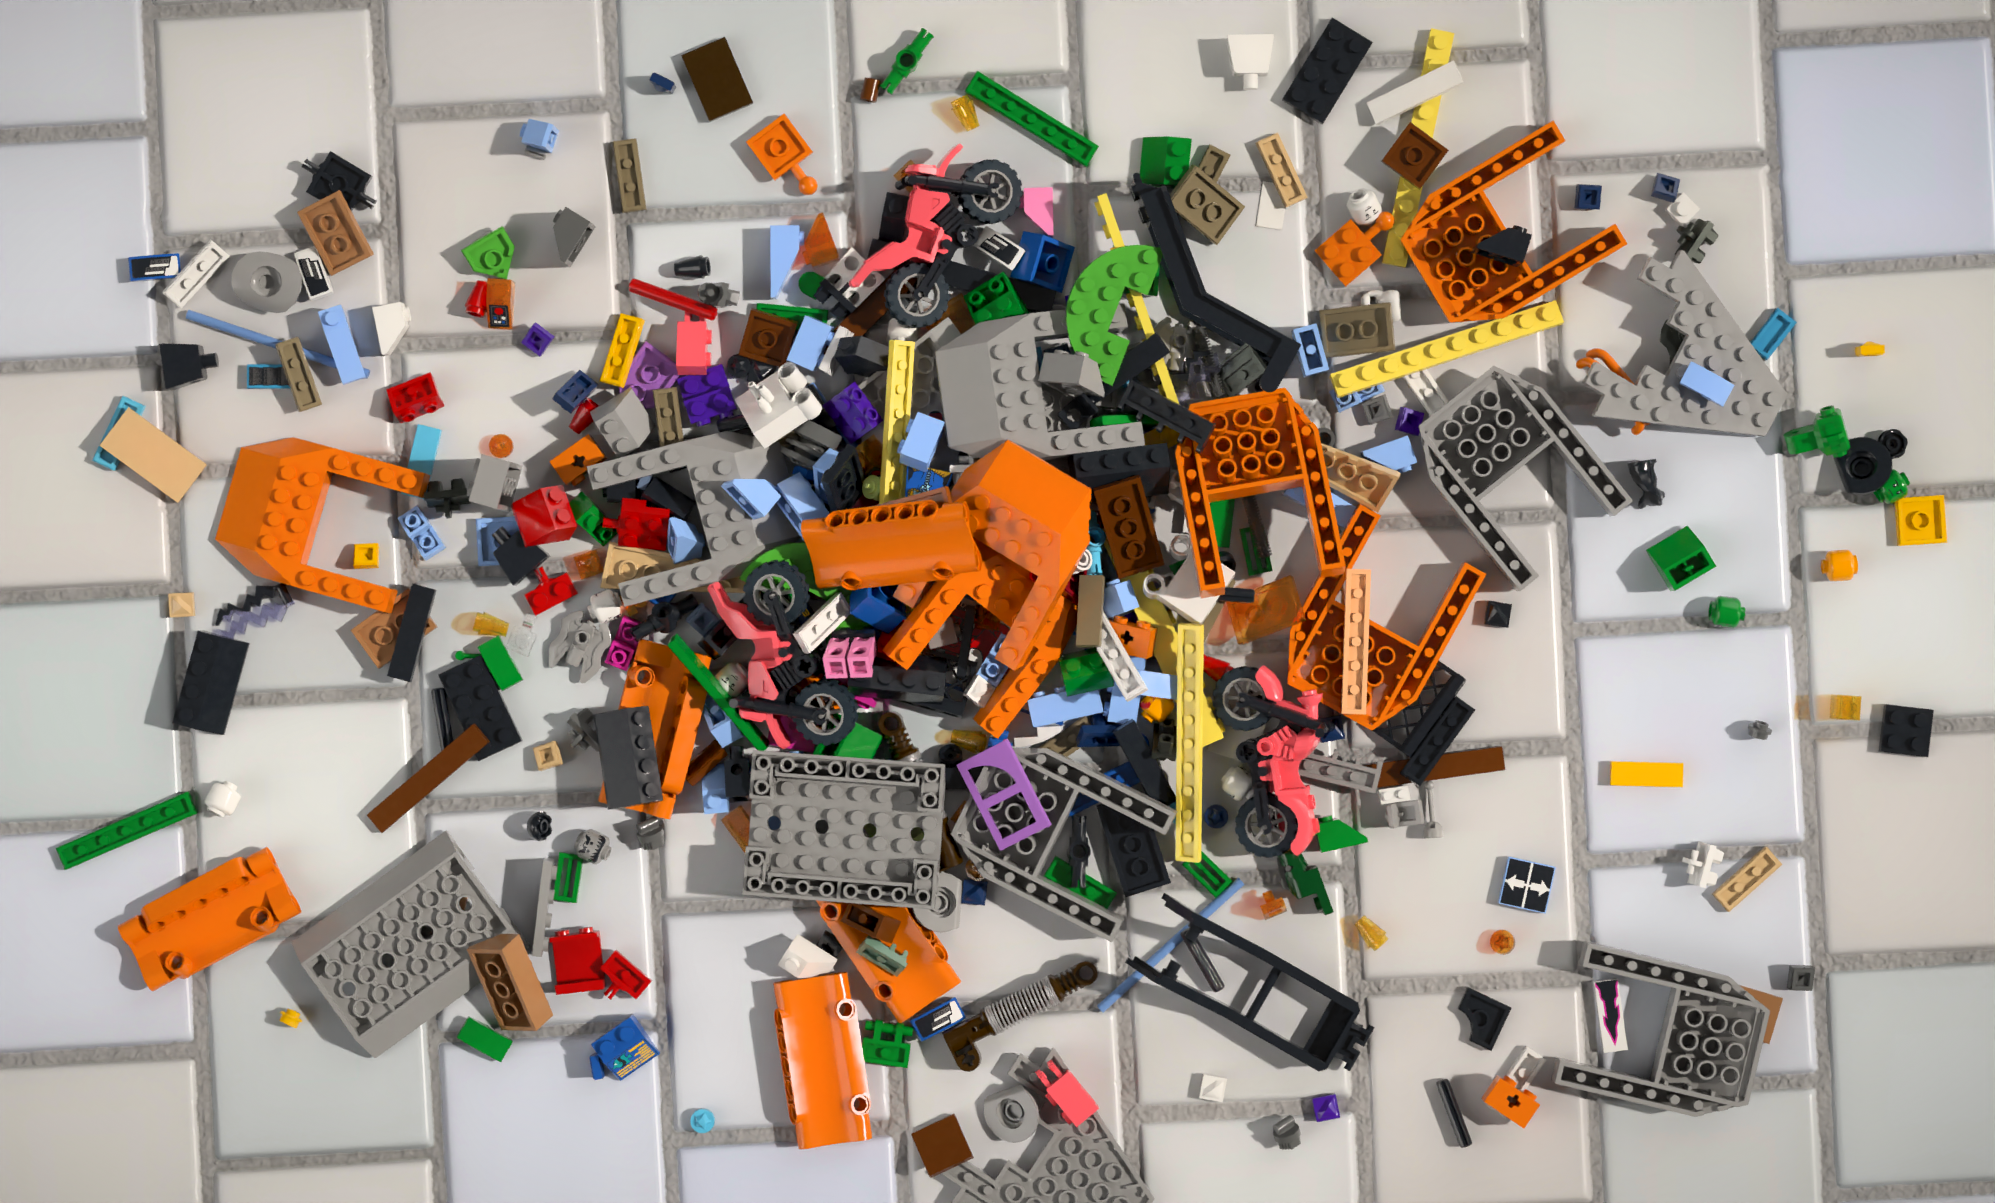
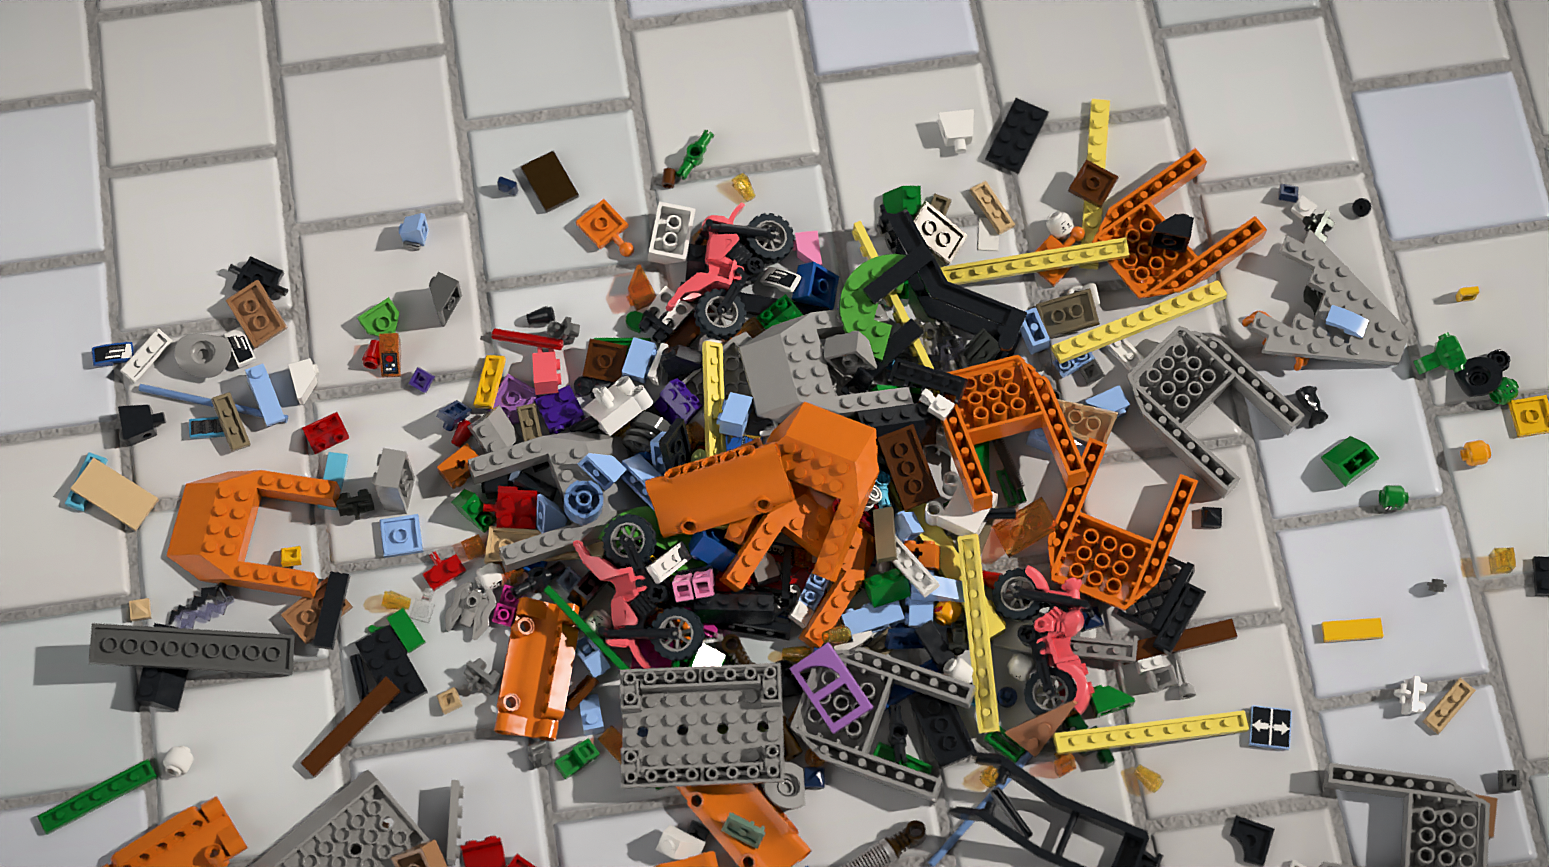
camera: 10 degrees left, 20 degrees down
(241, 670) = (191, 649): none -> dark grey plate
(421, 532) = (335, 535): light blue slope -> none
(515, 558) = (416, 541): black torso -> none
(539, 826) = (446, 757): black plate -> none
(544, 516) = (436, 507): red slope -> none
(571, 856) = (474, 781): green tile -> none
(592, 846) = (492, 769): light grey head -> none
(628, 757) = (517, 688): black slope -> none
(629, 175) = (486, 255): dark tan tile -> none
(694, 841) = (577, 758): none -> green slope
(737, 786) = (609, 700): black torso -> none
(738, 539) = (583, 491): none -> medium blue brick
(784, 251) = (612, 299): light blue slope -> none
(866, 173) = (671, 233): none -> white slope
(871, 922) = (731, 801): reddish brown slope -> none
(1018, 727) = (837, 635): none -> clear yellow cone
(1031, 119) = (795, 188): green tile -> none
(1144, 277) = (898, 274): none -> black tile
(1159, 787) = (959, 670): none -> white head
(1176, 454) = (938, 406): none -> white plate
(1194, 902) = (989, 776): none -> clear yellow cone
(1245, 869) = (1036, 732): none -> nougat wing
(1323, 259) = (1037, 261): none -> light yellow plate
(1356, 641) = (1102, 540): light nougat plate -> none
(1380, 883) = (1150, 732): none -> light yellow plate
(1408, 421) = (1118, 377): dark purple tile -> none
(1415, 92) = (1087, 141): white tile -> none
(1502, 942) = (1258, 775): clear orange tile -> none
(1588, 196) = (1230, 204): dark blue tile -> none
(1610, 1015) = (1357, 827): tile -> none
(1756, 216) = (1361, 207): none -> black tile
(1772, 333) = (1390, 289): dark azure tile -> none

